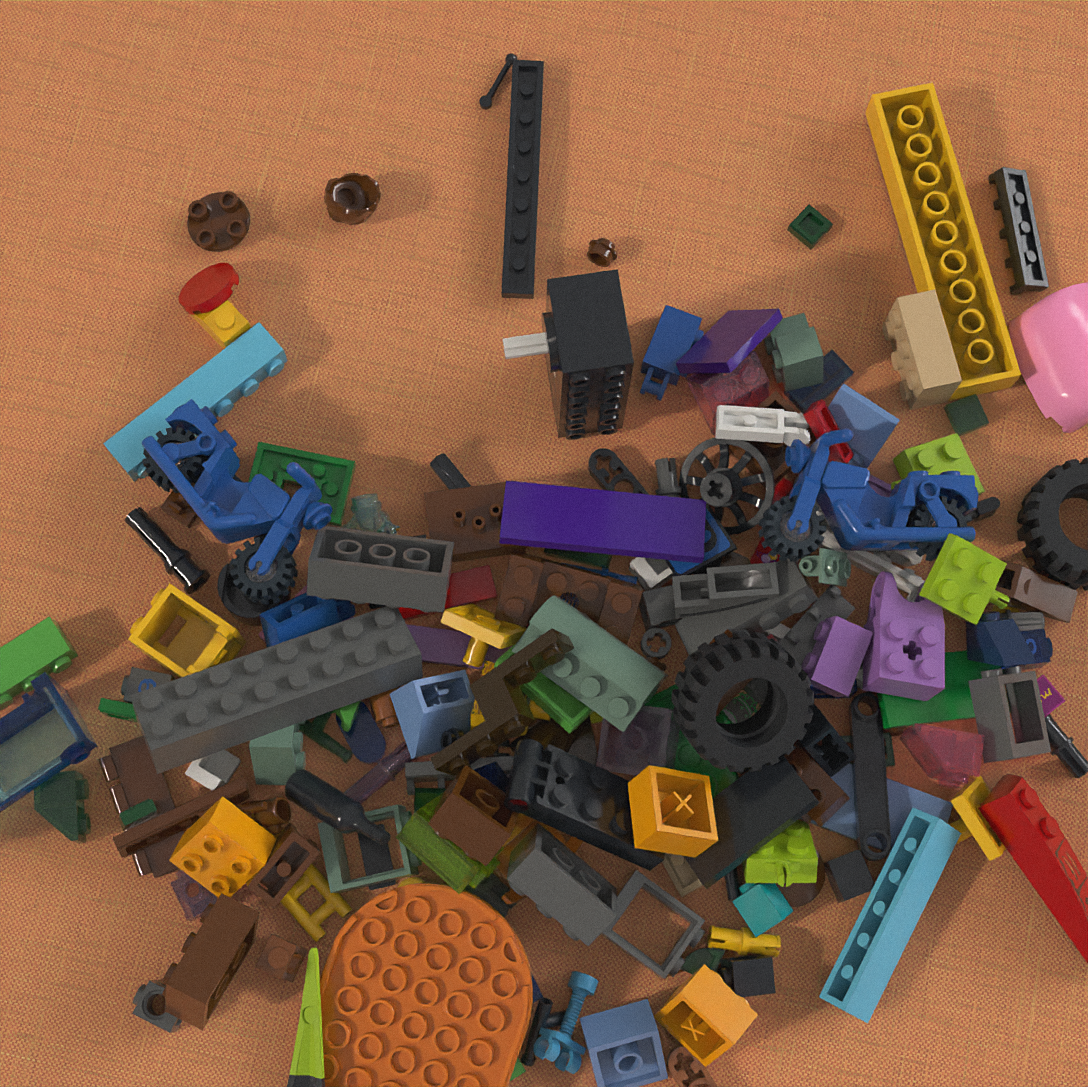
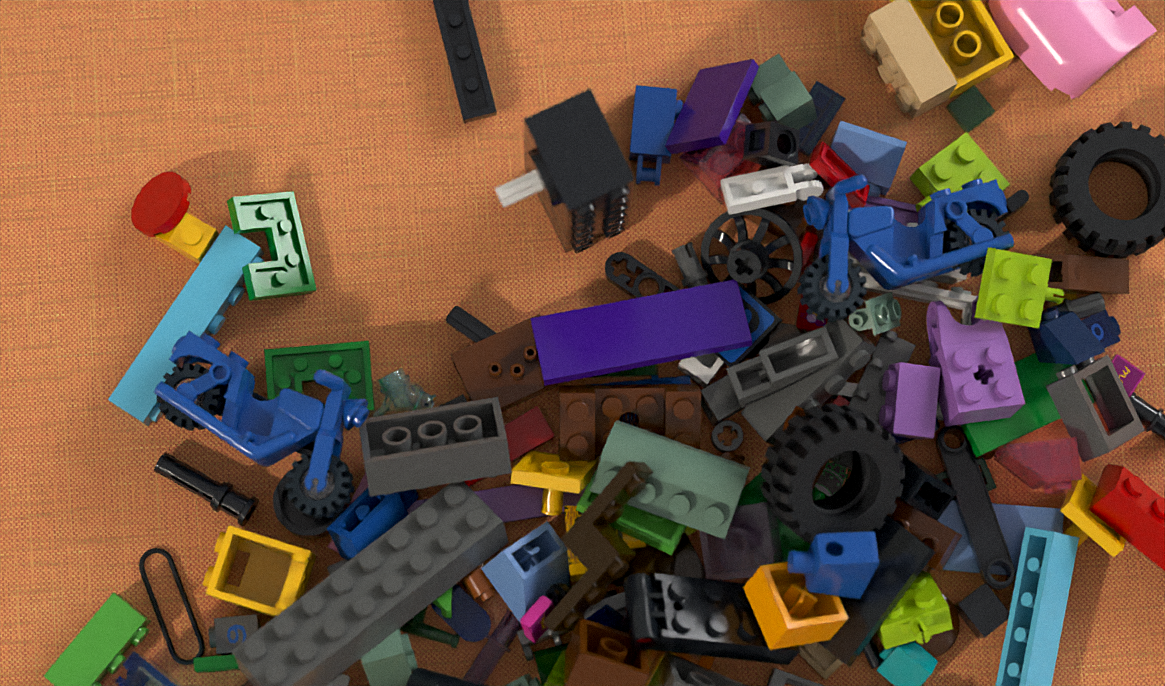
camera: 20 degrees left, 5 degrees up
(86, 645) = (157, 610): none -> black piece
(179, 509) = (205, 442): reddish brown tile -> none
(218, 221) = (145, 127): reddish brown dish -> none
(306, 375) = (290, 266): none -> plate
(351, 198) = (278, 63): reddish brown hair -> none
(421, 755) = (533, 619): none -> dark pink tile
(601, 252) = (552, 45): reddish brown plate -> none
(722, 784) = (837, 563): none -> blue torso
(773, 385) = (771, 144): none -> black brick

